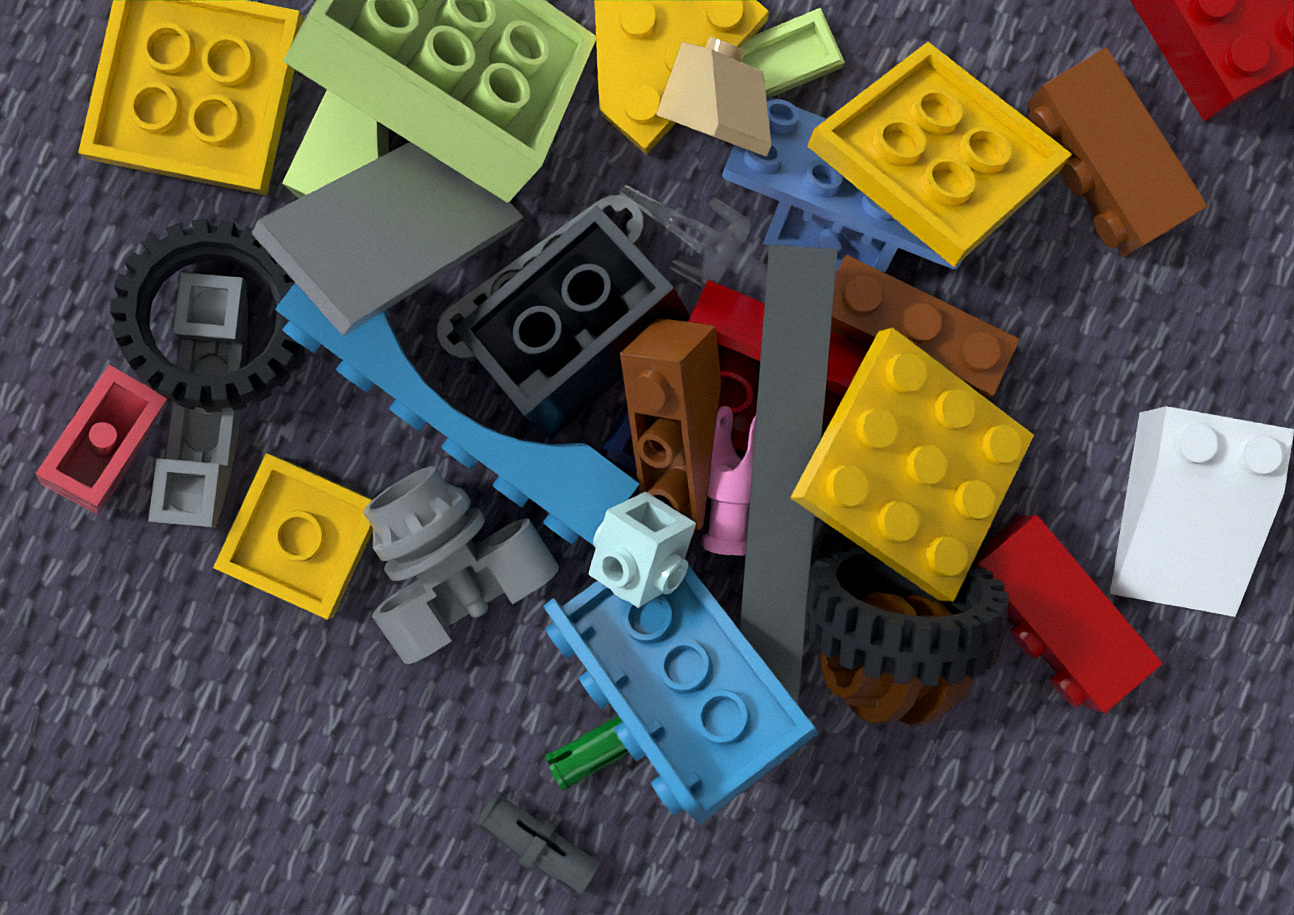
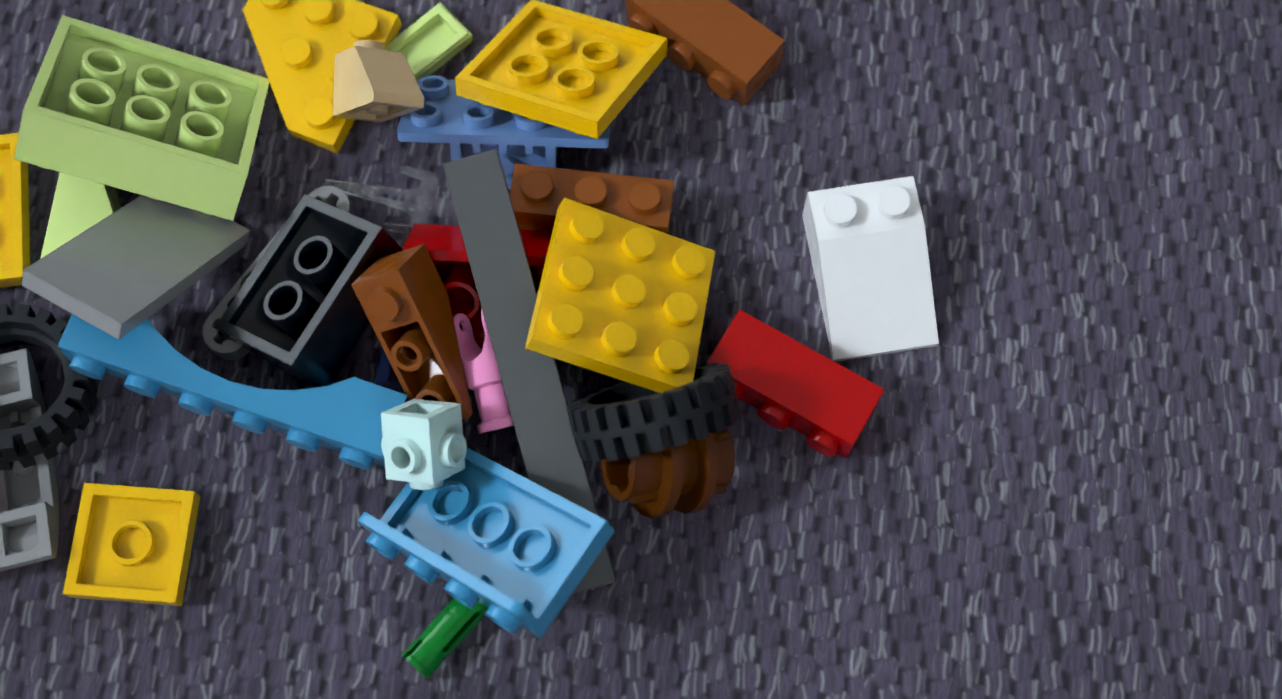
camera: 20 degrees left, 15 degrees down
(427, 534) = (237, 491): light grey beam -> none

